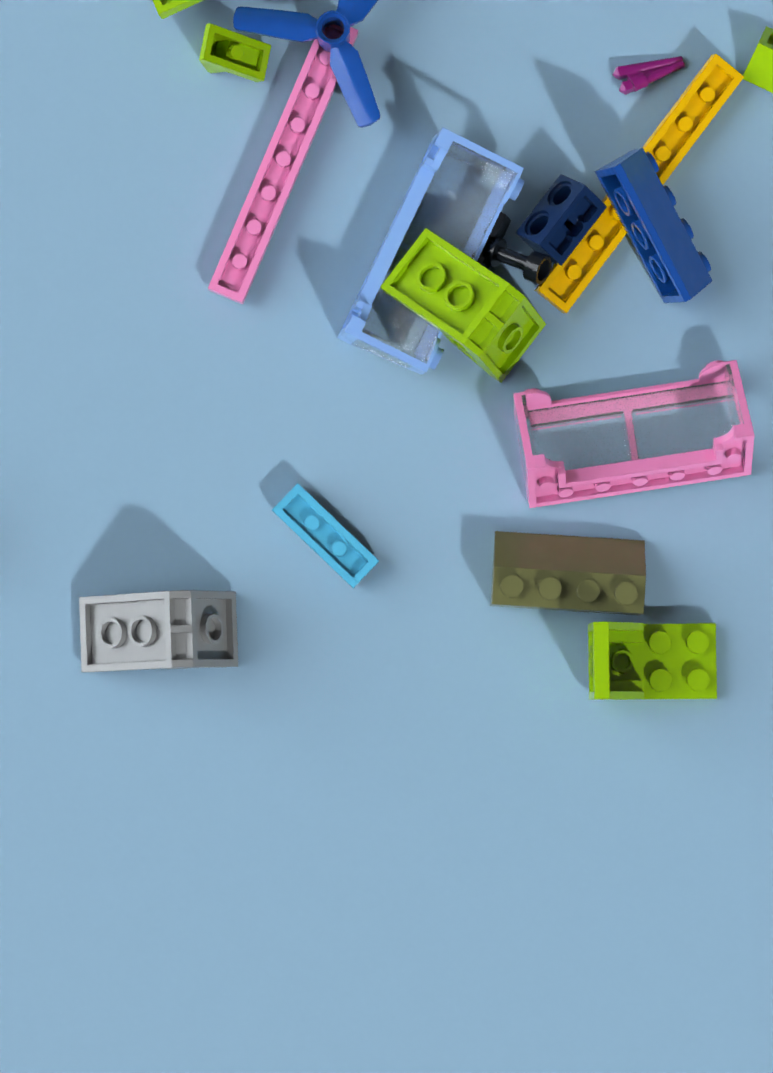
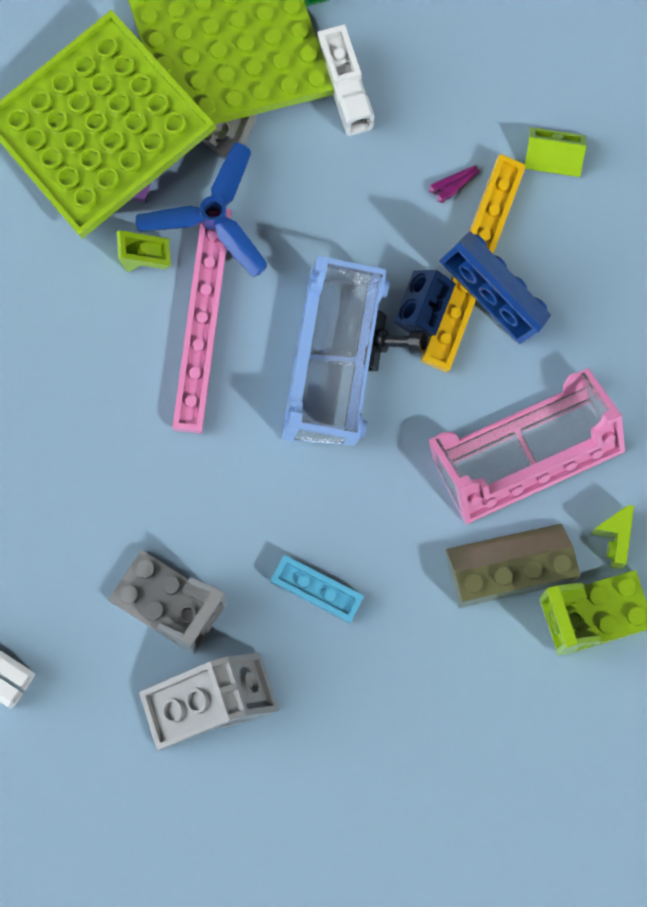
camera: 20 degrees left, 10 degrees down
(143, 499) = (168, 601): none -> light grey bracket
(466, 303) = (377, 380): lime bracket -> none
(712, 568) = (619, 529): none -> lime slope

